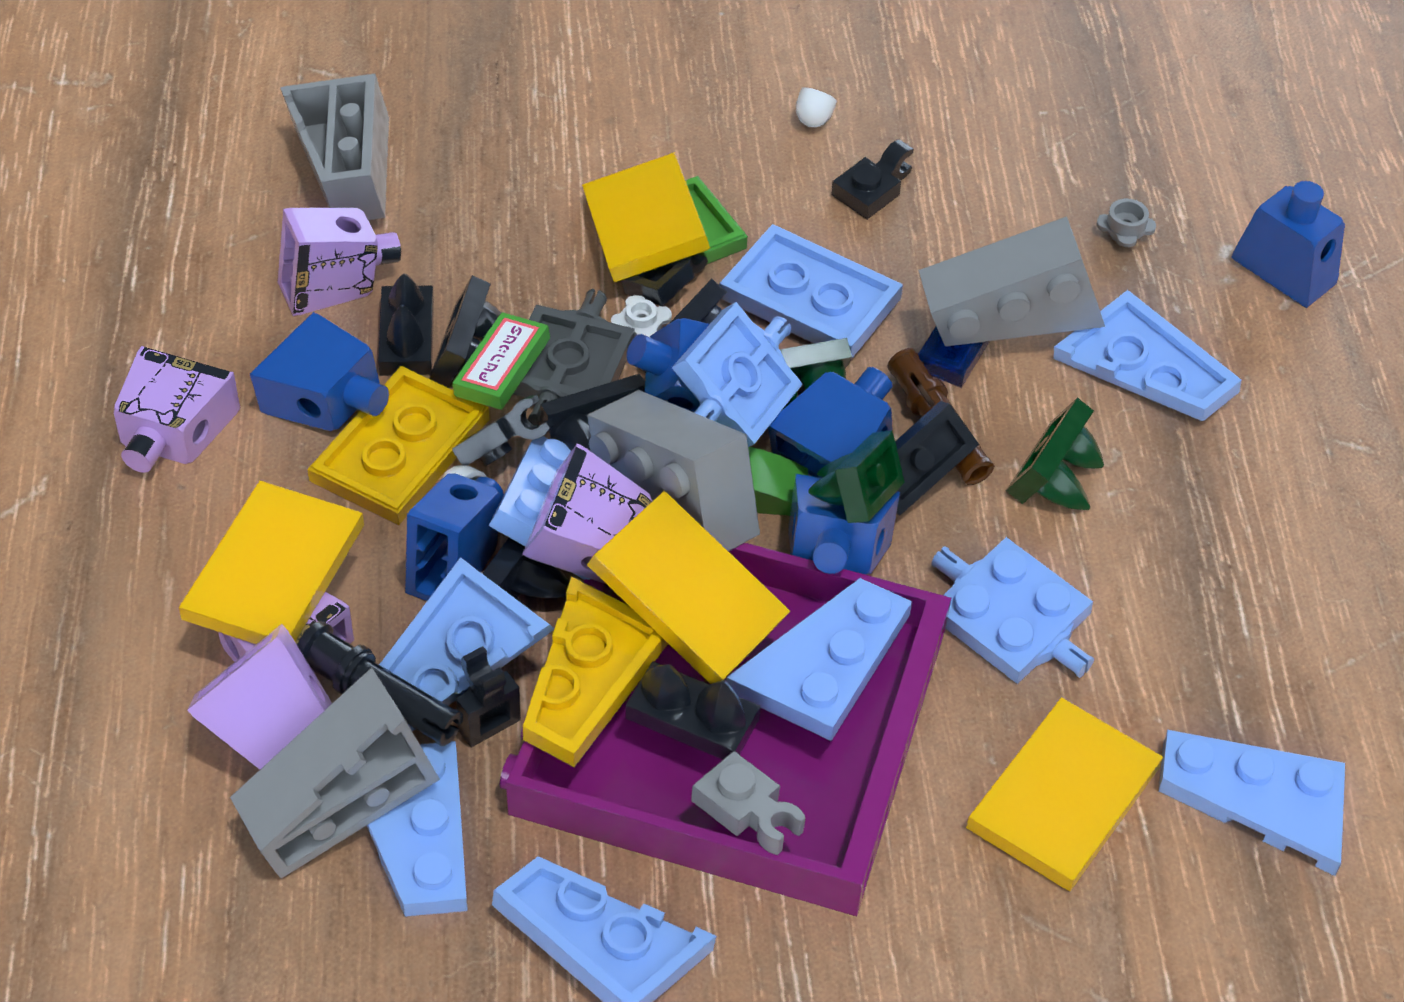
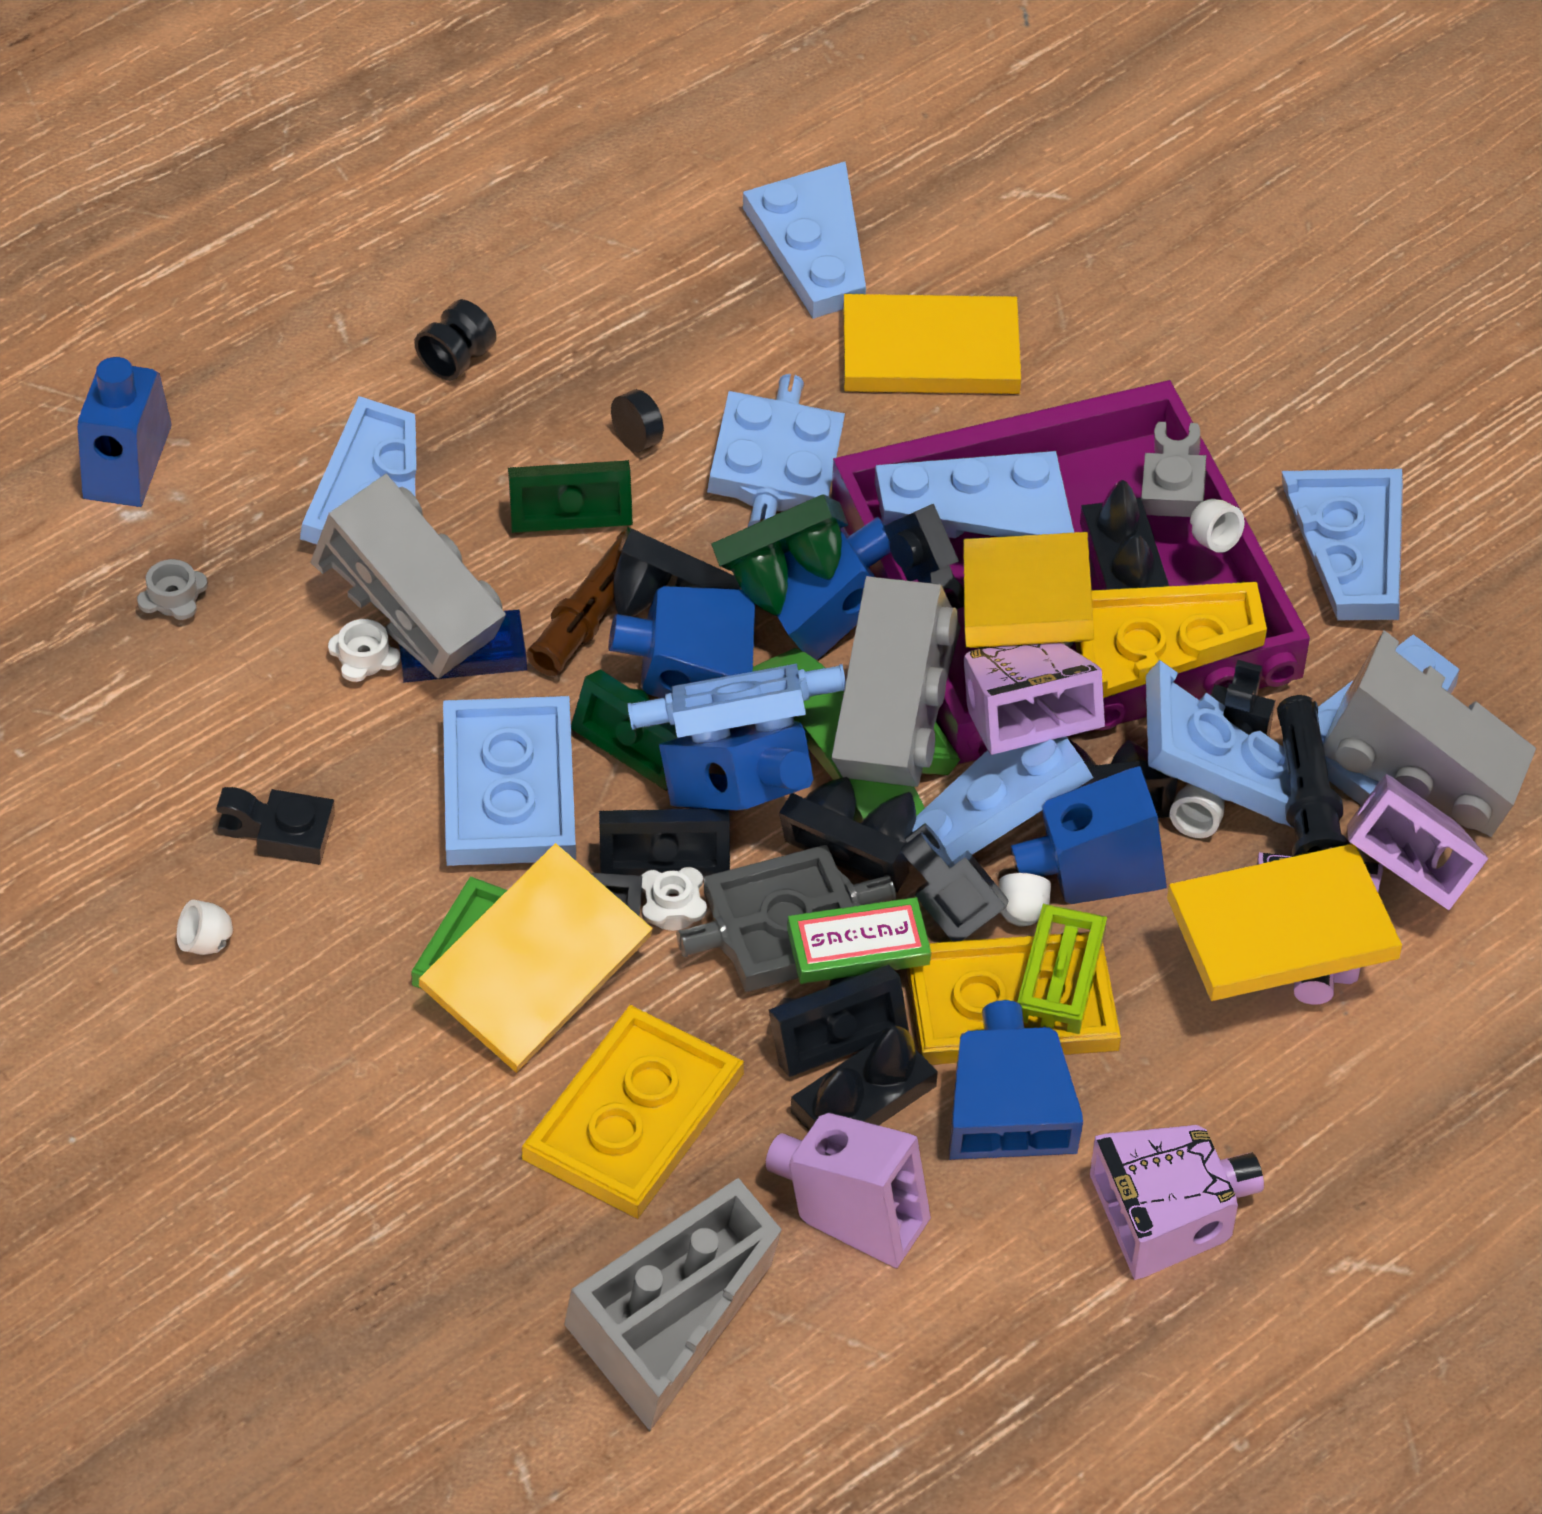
camera: 125 degrees left, 0 degrees up
(405, 487) = (1051, 1008): none -> lime tile
(504, 225) = (633, 1111): none -> yellow tile
(666, 784) = (1217, 524): none -> white hinge
(781, 547) = (925, 551): none -> black plate
(1105, 534) = (637, 420): none -> black tile
(1277, 479) = (461, 334): none -> black wheel

